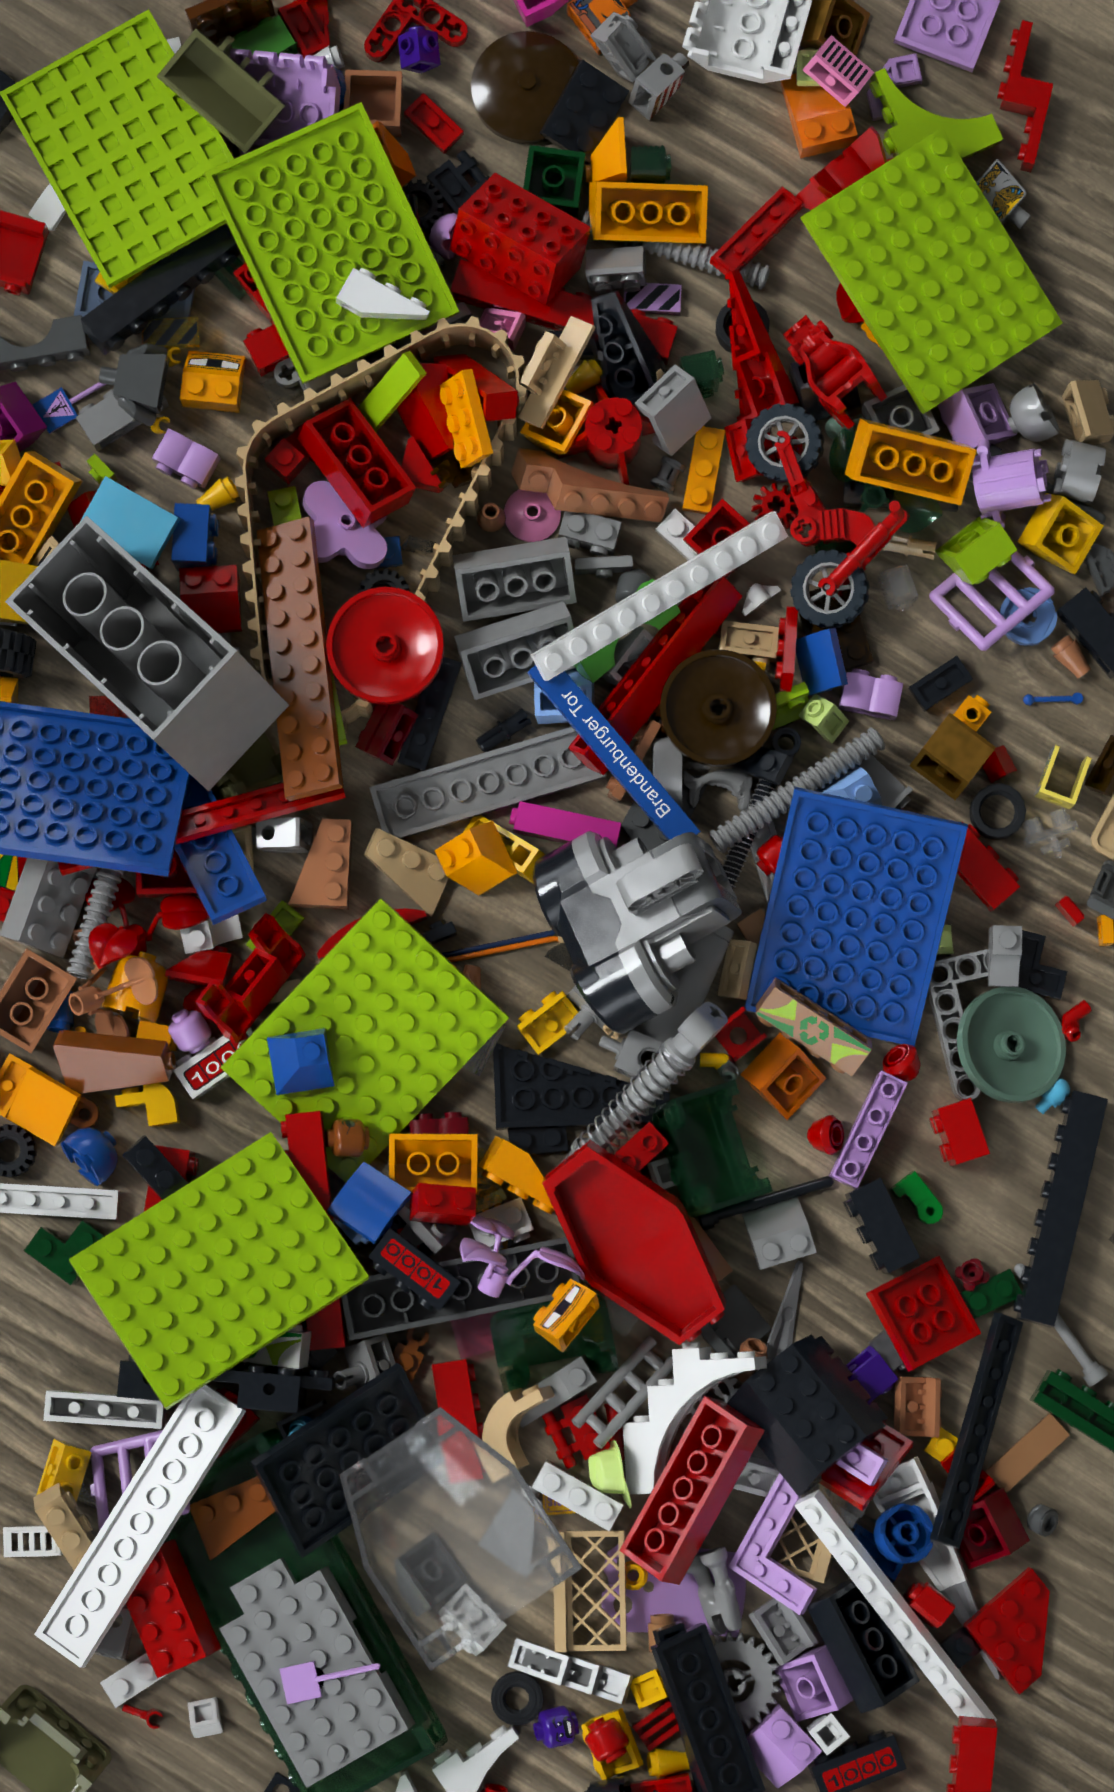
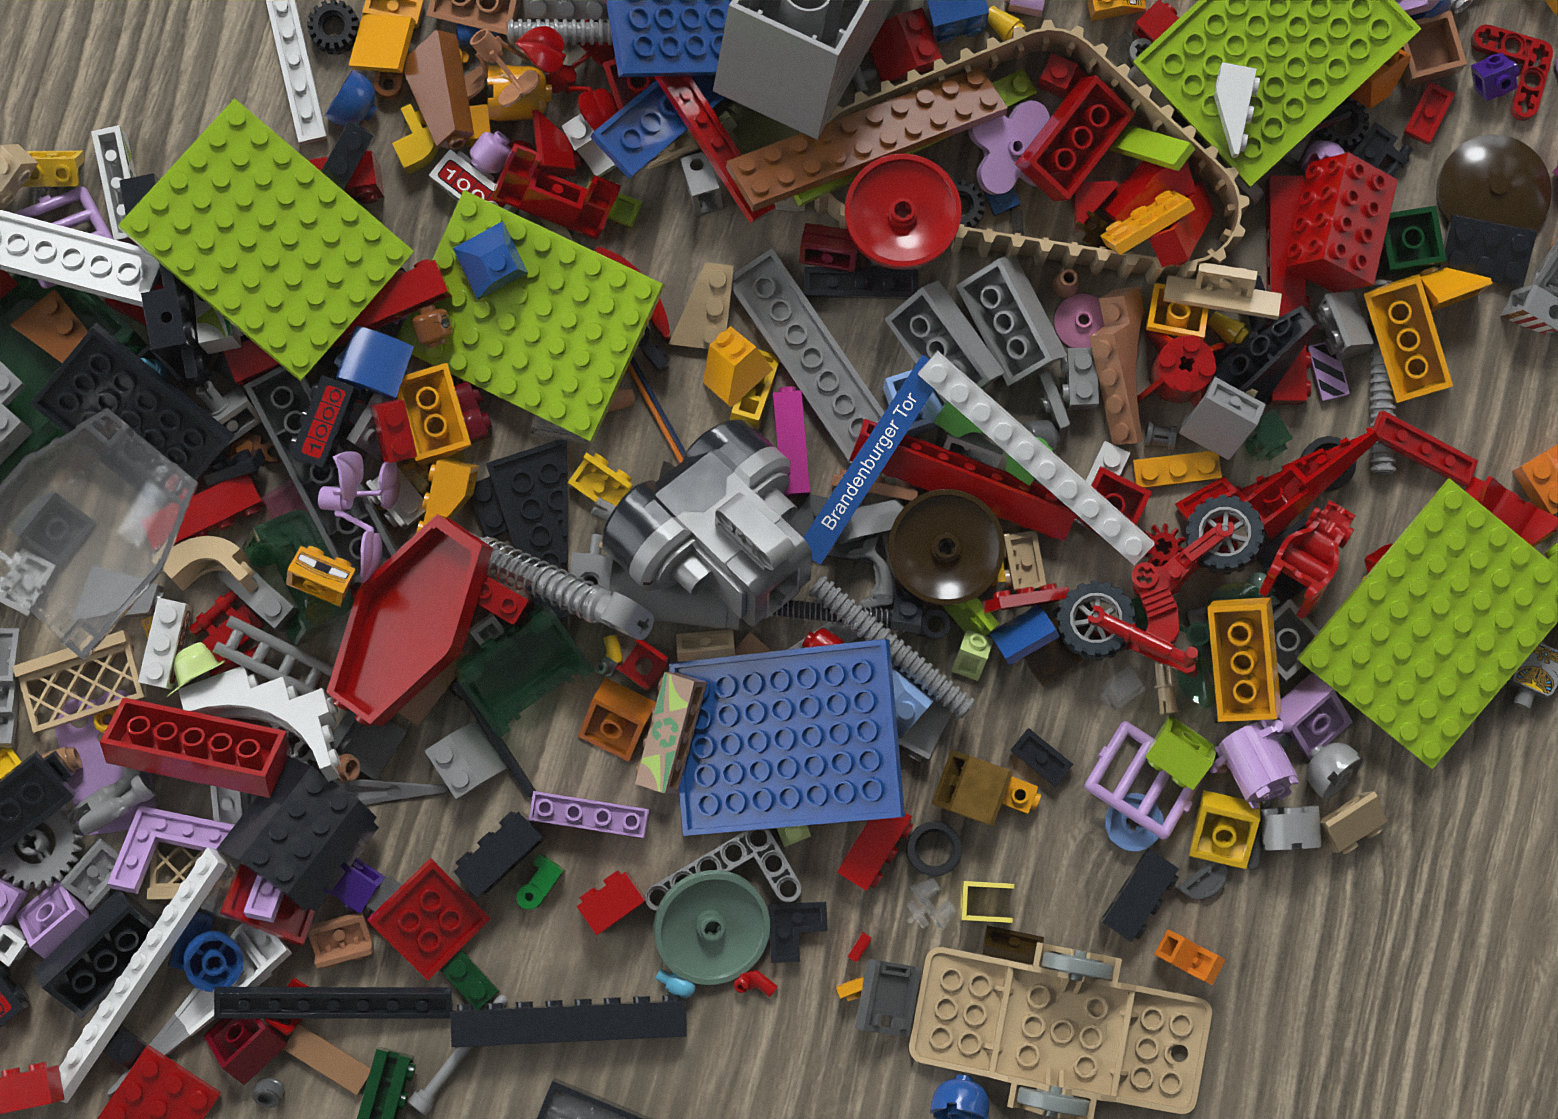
camera: 75 degrees right, 0 degrees up
(55, 1252) = (254, 91): dark green brick -> none
(327, 869) = (684, 233): nougat wedge -> none
(423, 1378) = (240, 464): none -> black plate
(503, 730) = (865, 356): black axle -> none
(511, 322) = (1256, 238): bright pink slope -> none
(649, 165) = (1454, 325): clear green brick -> none
(757, 596) = (1070, 557): white piece -> none
(826, 1134) = (573, 777): red cone -> none
(871, 695) = (1008, 693): lavender brick -> none
(902, 1062) = (663, 828): red cone -> none
(929, 1604) = (155, 1005): red brick -> none
(942, 1446) = (311, 975): yellow plate -> none
(972, 1266) = (485, 948): dark red plate -> none
(998, 764) = (981, 836): red slope -> none
(1004, 955) = (792, 894): light grey arch -> none
(1070, 655) = (1108, 875): nougat cone -> none
(1076, 698) = (1069, 893): blue hinge -> none

